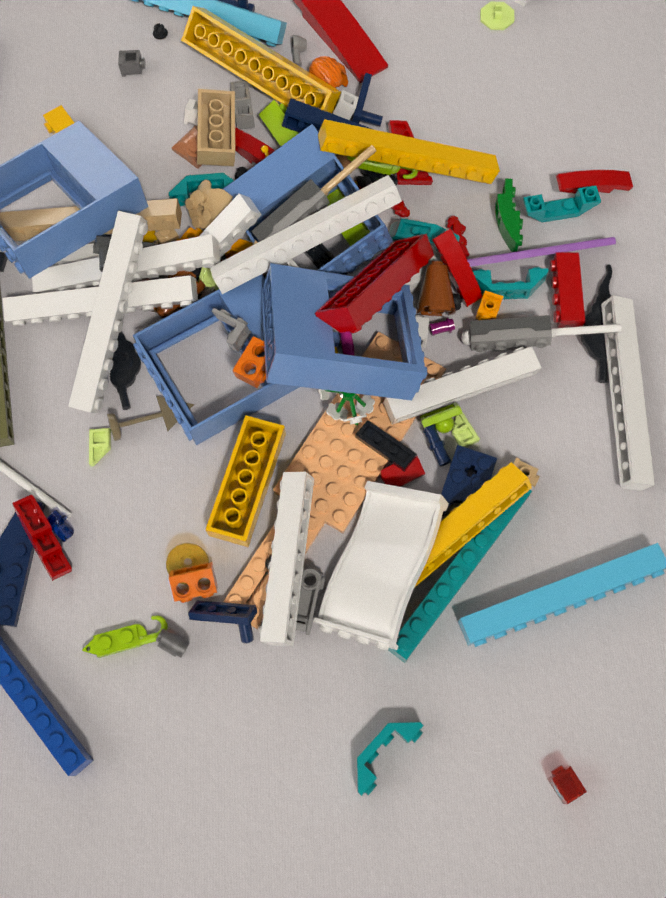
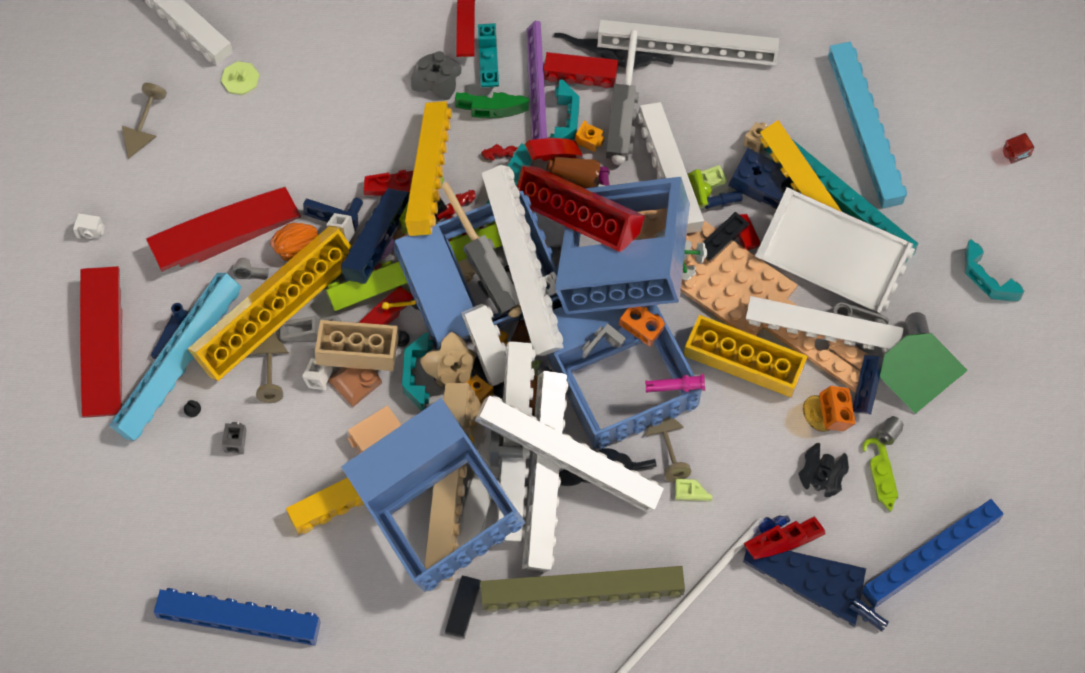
camera: 85 degrees left, 5 degrees down
(121, 572) = (822, 473): none -> black piece
(144, 166) = (373, 429): none -> light nougat brick
(191, 410) = (685, 383): none -> dark pink pin
(222, 76) = (270, 392): none -> dark tan piece
(242, 660) = (919, 365): none -> green piece
(533, 162) = (440, 83): none -> dark grey brick

